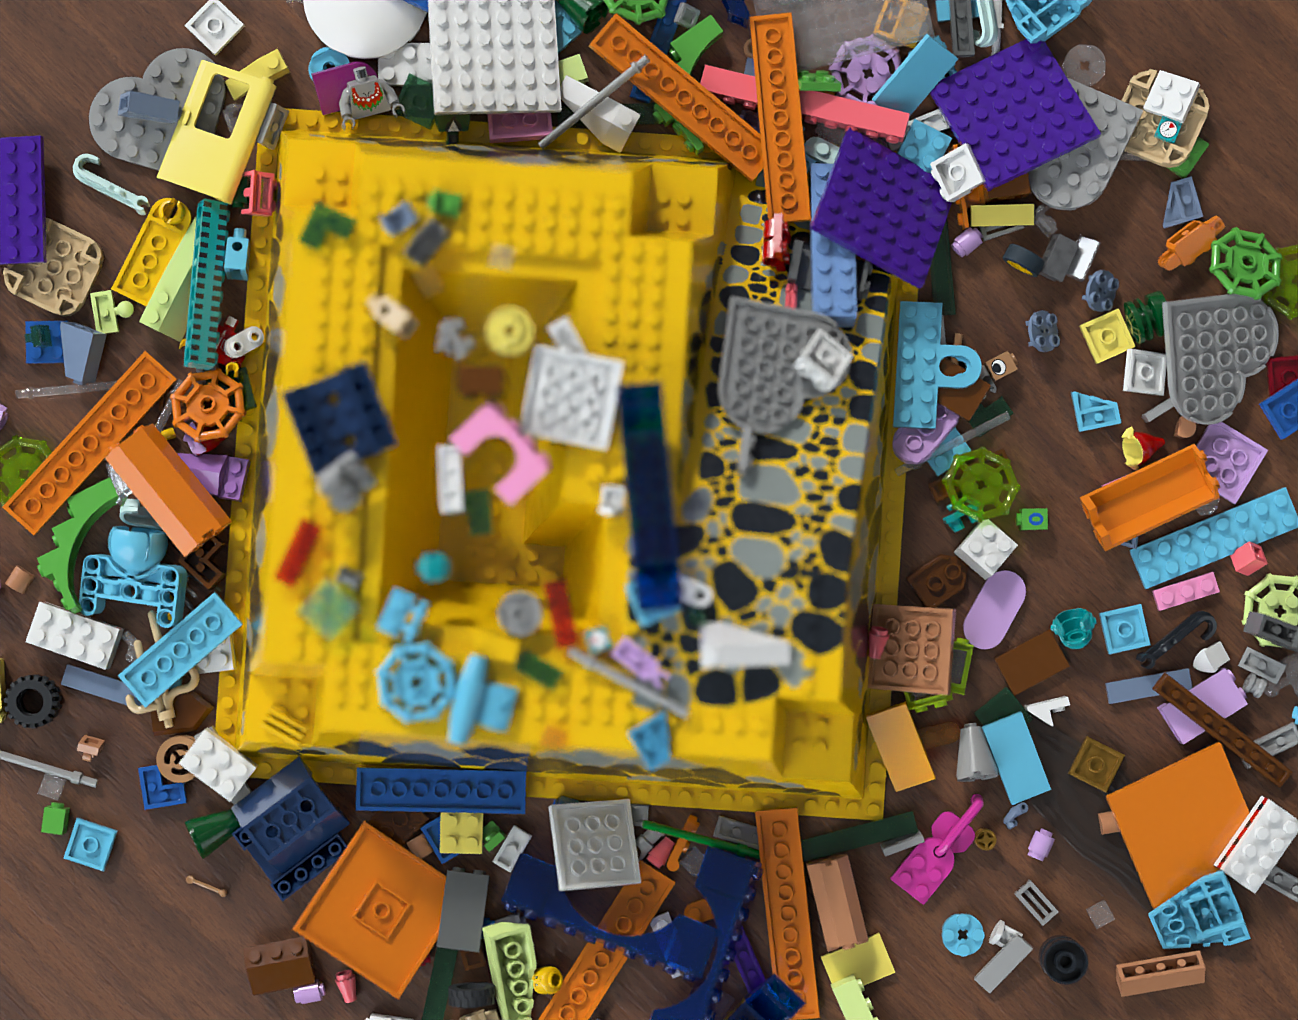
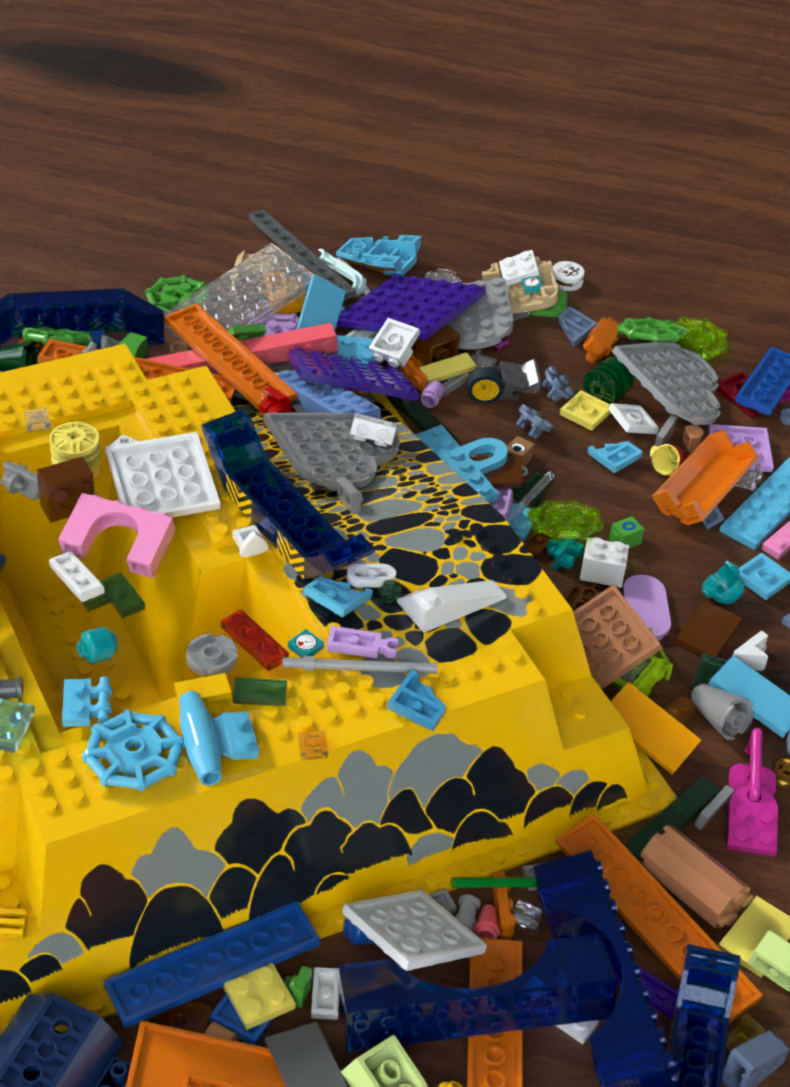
camera: 30 degrees left, 45 degrees down
(1227, 118) = (568, 275): none -> white head

